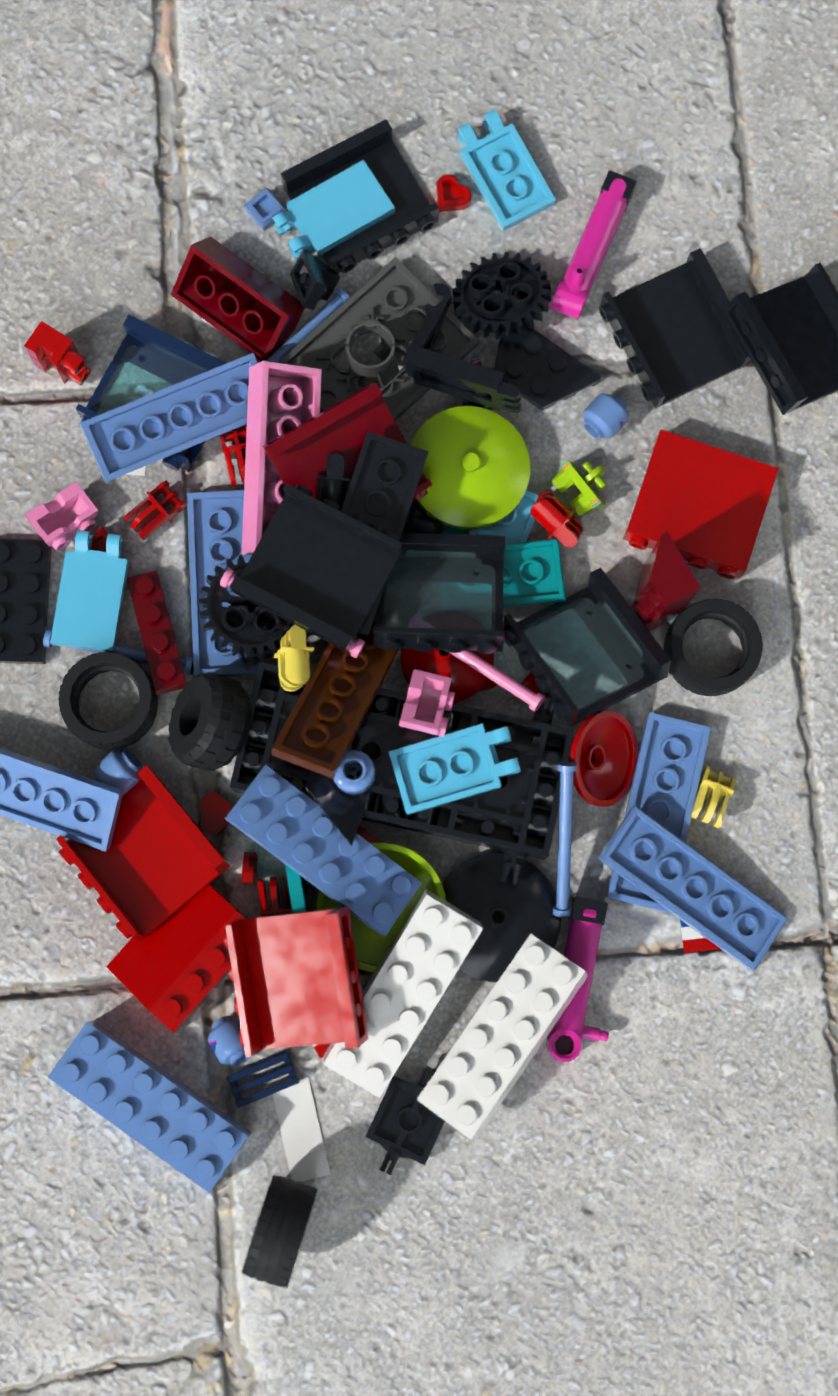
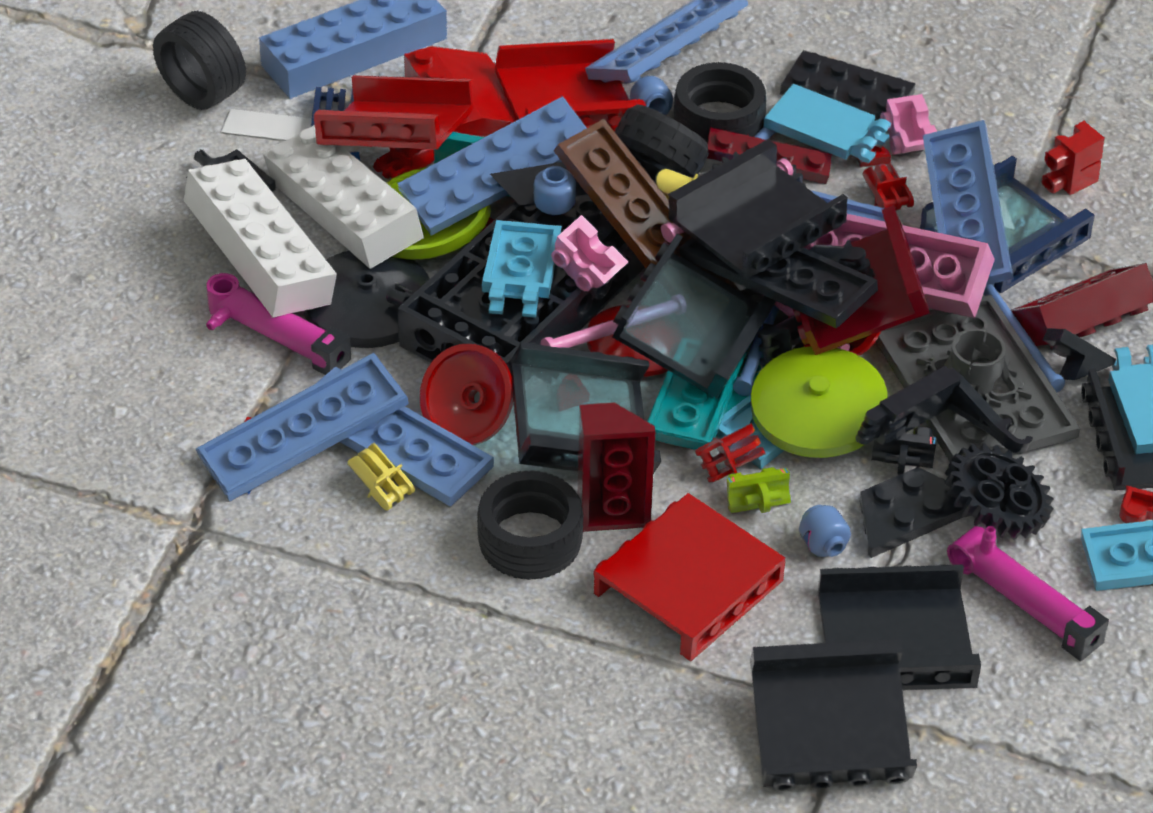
camera: 115 degrees right, 35 degrees down
(562, 906) = (469, 334): medium blue bar -> none

